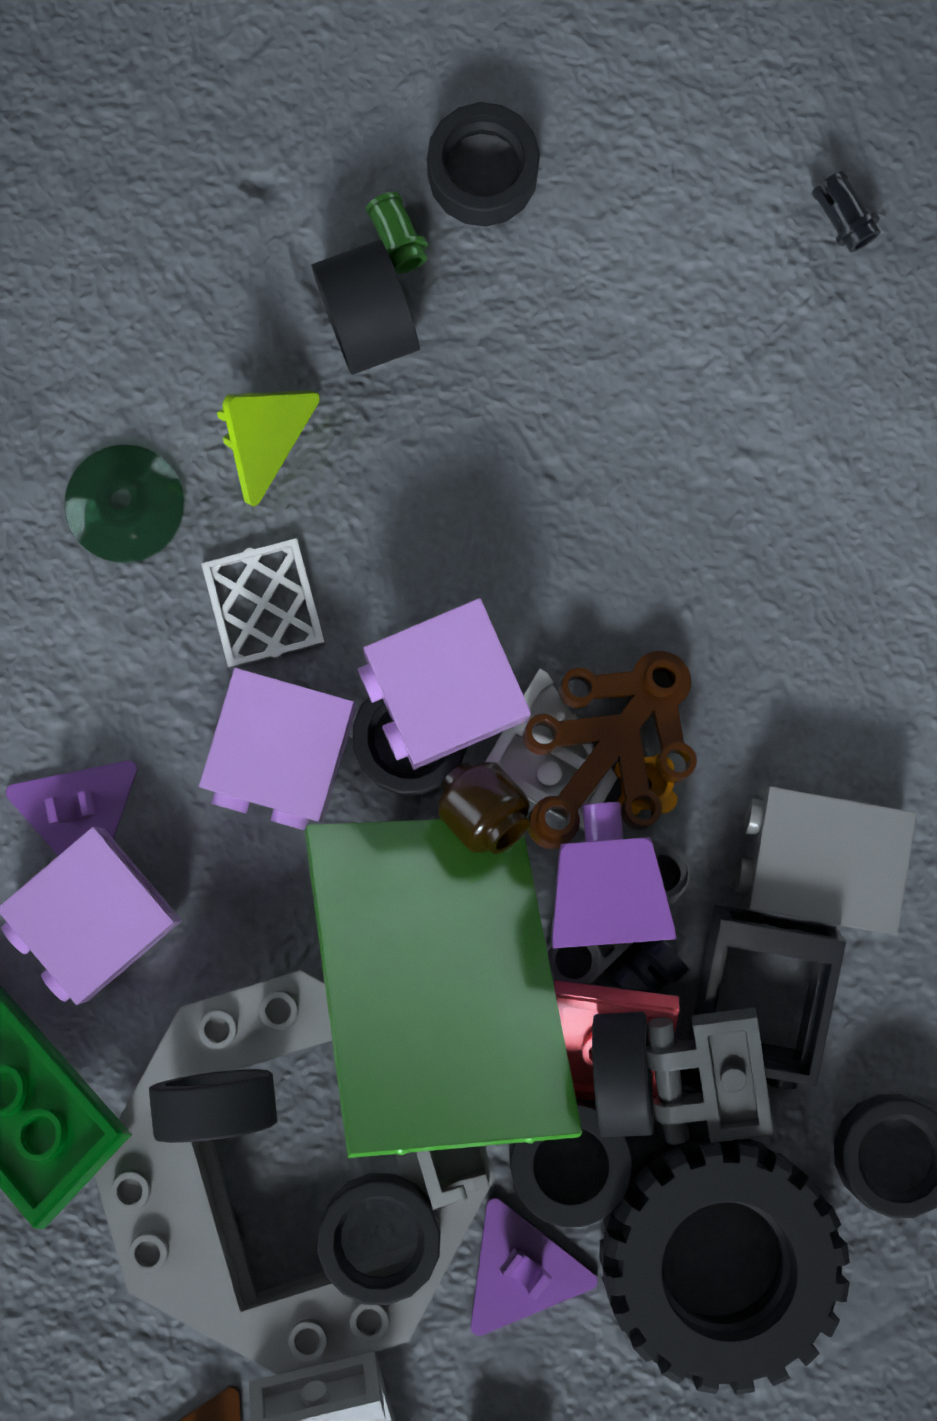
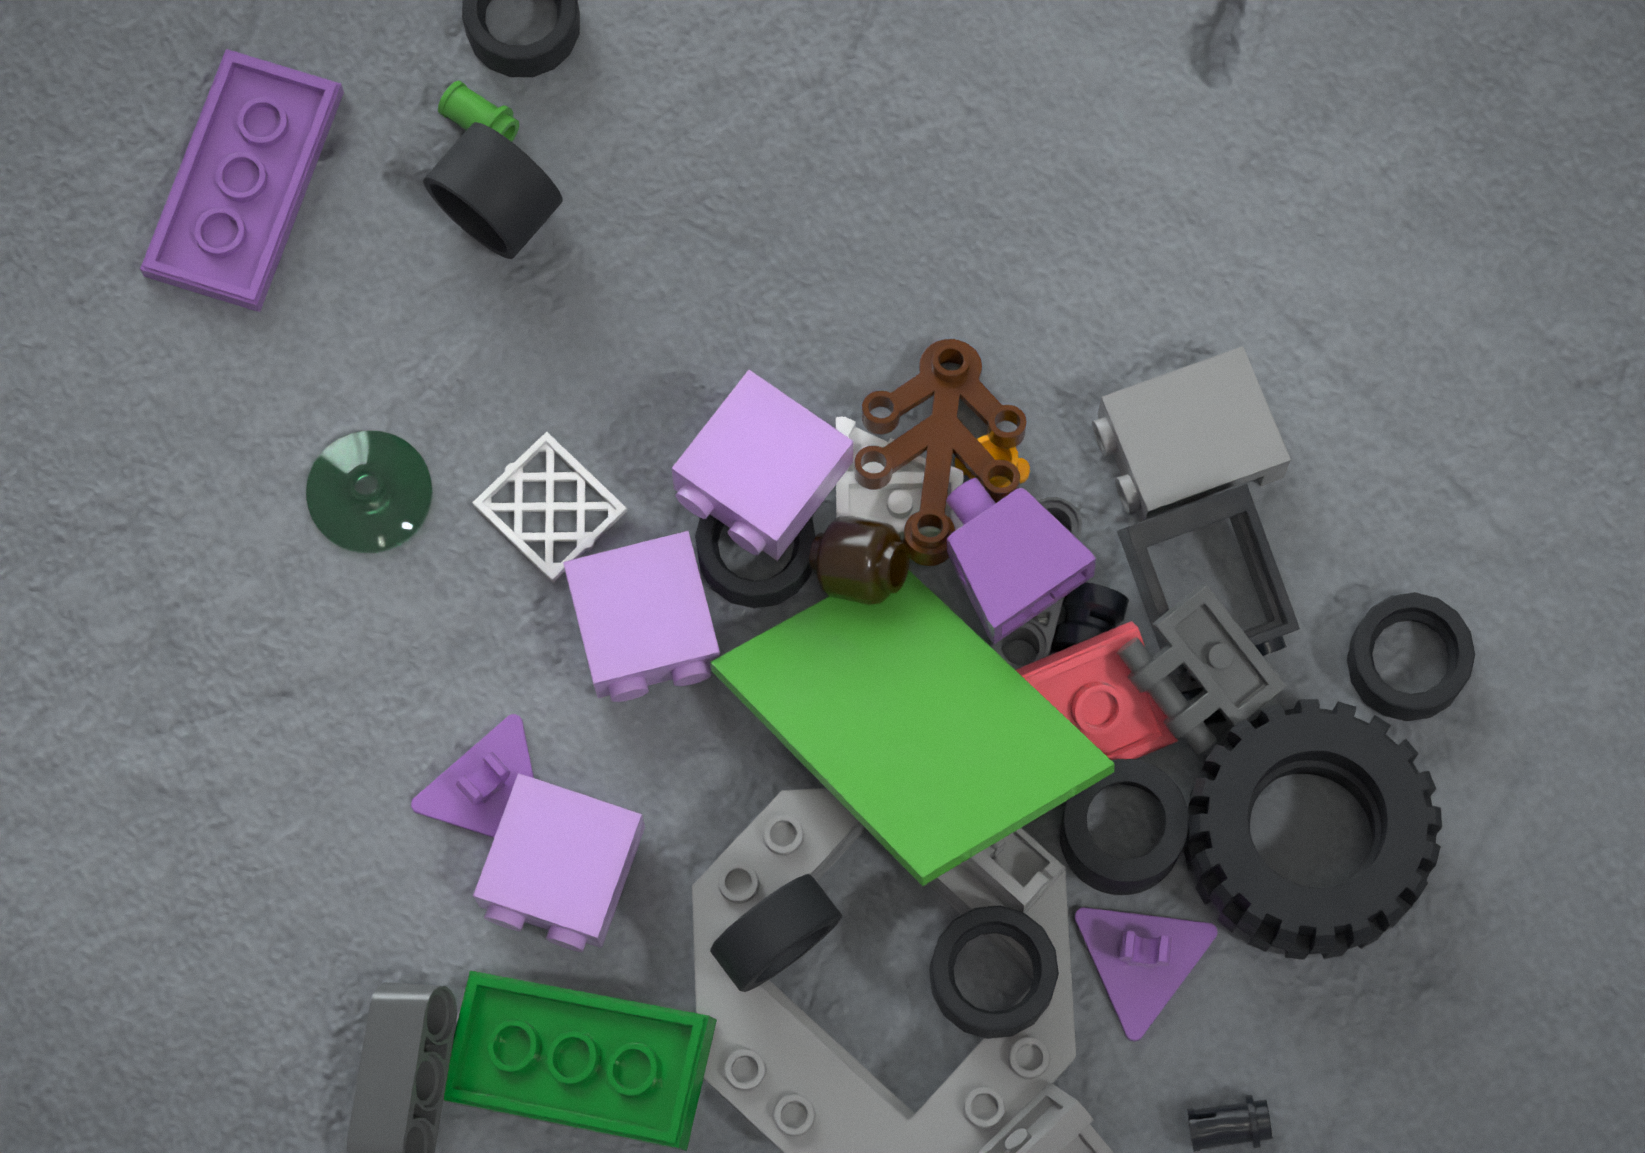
camera: 25 degrees left, 10 degrees down
(173, 175) = (242, 180): none -> medium lavender tile
(263, 433) = (462, 355): lime piece -> none
(622, 1074) = (1121, 702): black tyre -> none

